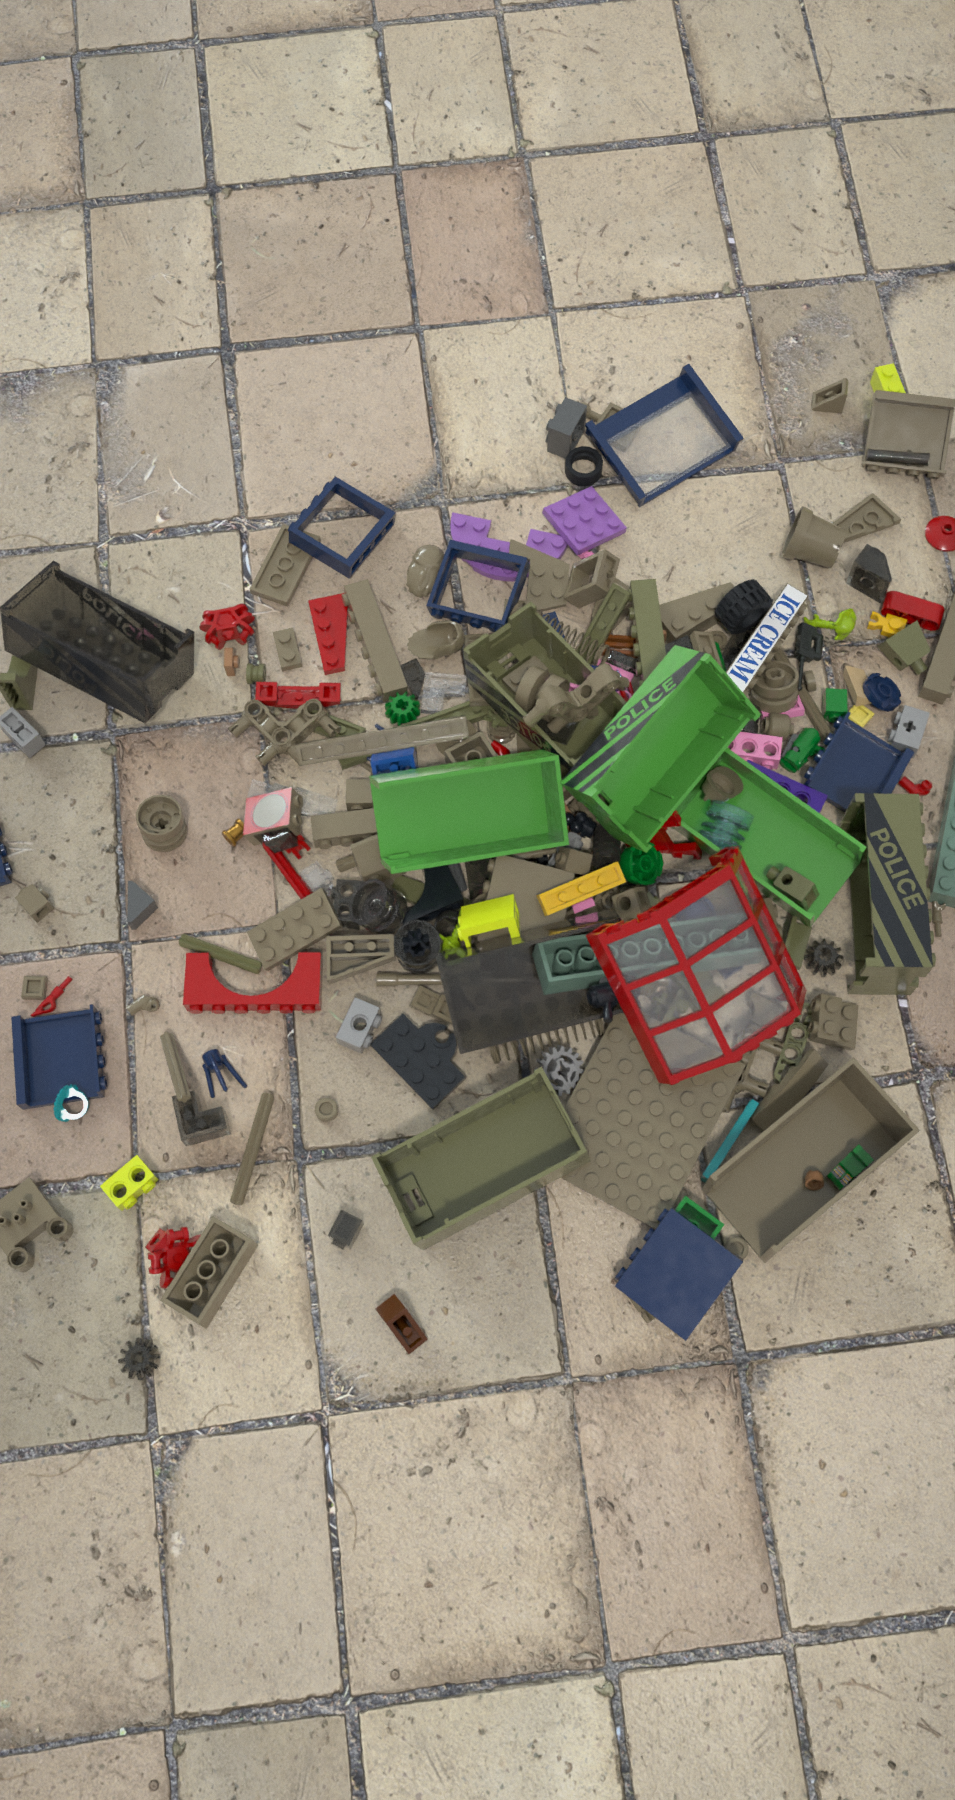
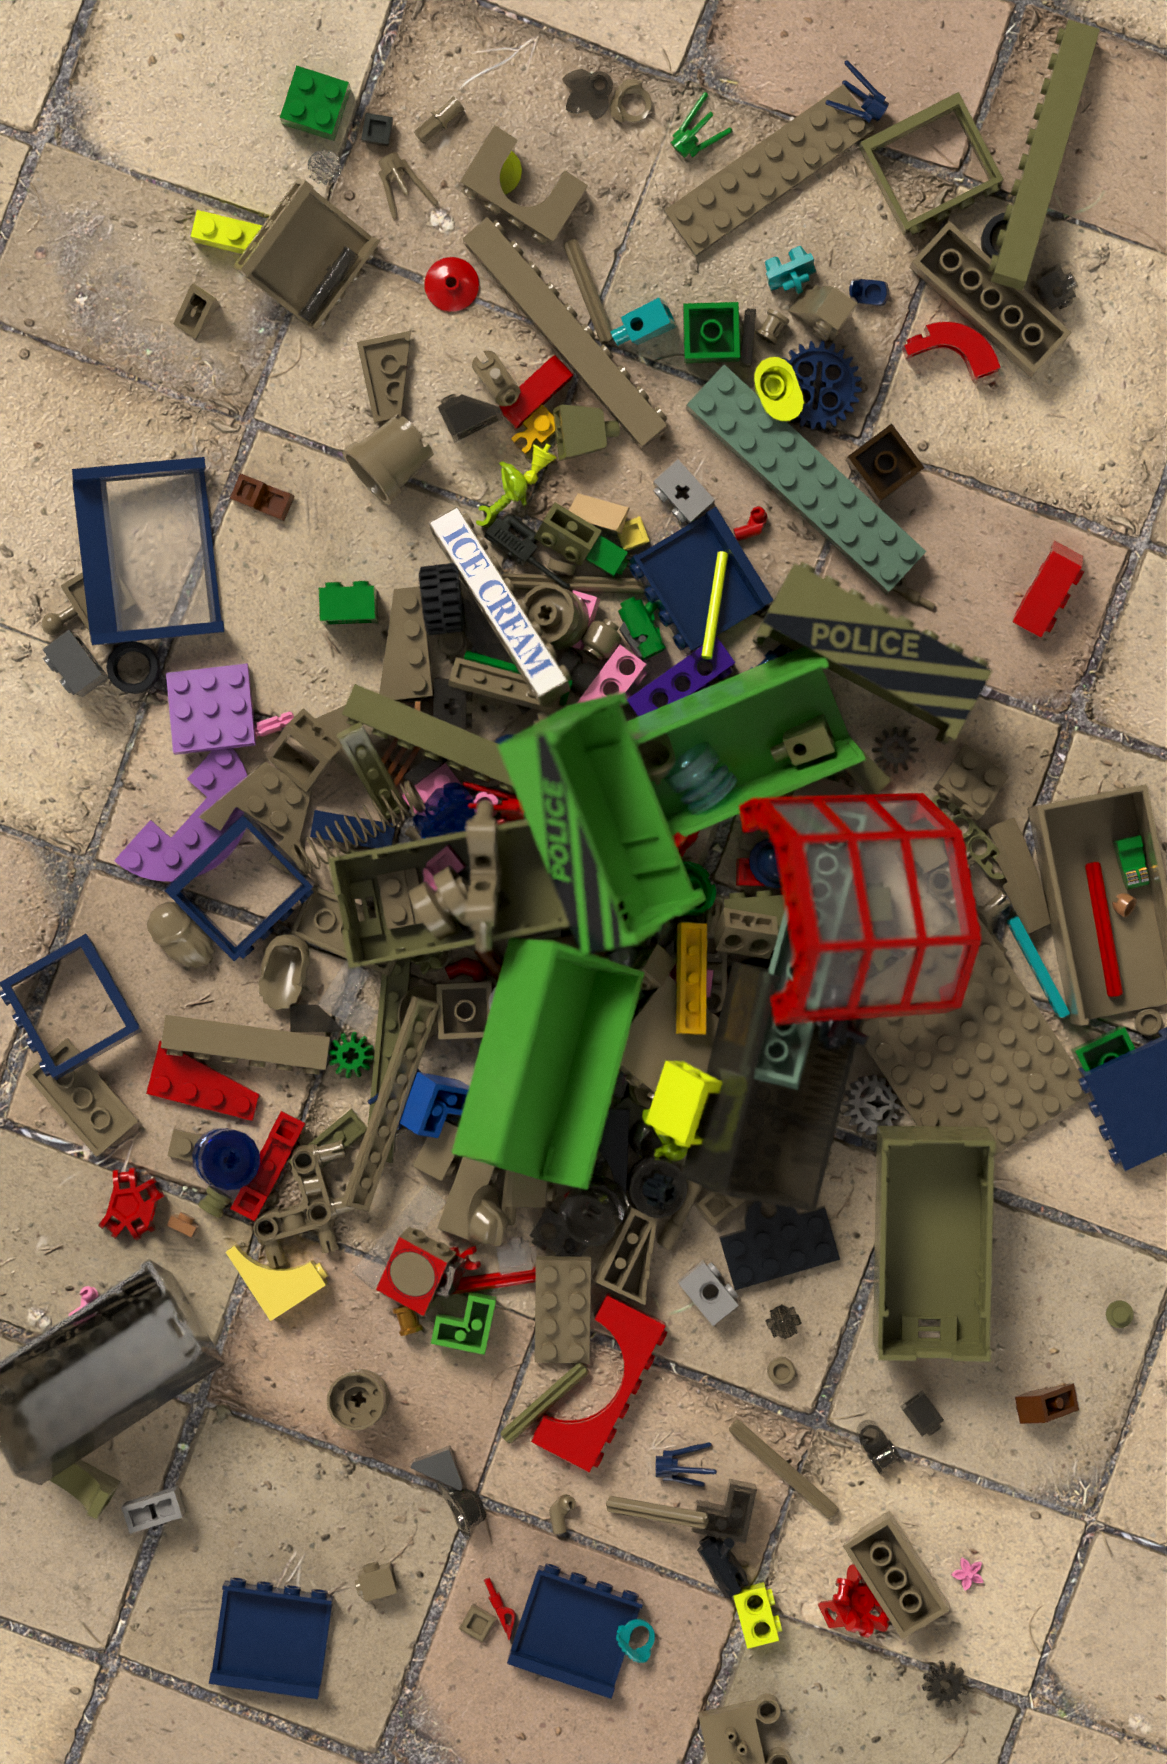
camera: 60 degrees left, 20 degrees up
(117, 935) = (465, 1508): none -> clear smoke piece
(157, 1137) = (722, 1564): none -> black piece
(214, 739) = (278, 1287): none -> light yellow arch
(237, 1333) = (968, 1573): none -> bright pink plant
(251, 875) = (468, 1332): none -> bright green brick
(289, 649) = (241, 1163): none -> clear blue wheel
(302, 1210) = (880, 1449): none -> clear smoke piece
(334, 843) = (485, 1218): none -> dark tan piece
(364, 1089) = (783, 1321): none -> clear smoke gear
(500, 1345) = (1119, 1314): none -> olive plate
(703, 561) = (348, 604): none -> green brick
(737, 489) = (262, 497): none -> reddish brown slope
(786, 1174) = (1103, 929): none -> red axle
(827, 789) = (714, 606): none -> neon yellow piece
(834, 669) = (567, 534): none -> olive brick
(872, 635) = (540, 459): none -> neon yellow piece
(882, 692) = (620, 494): dark blue tile -> none
(906, 578) = (496, 379): none -> dark tan piece

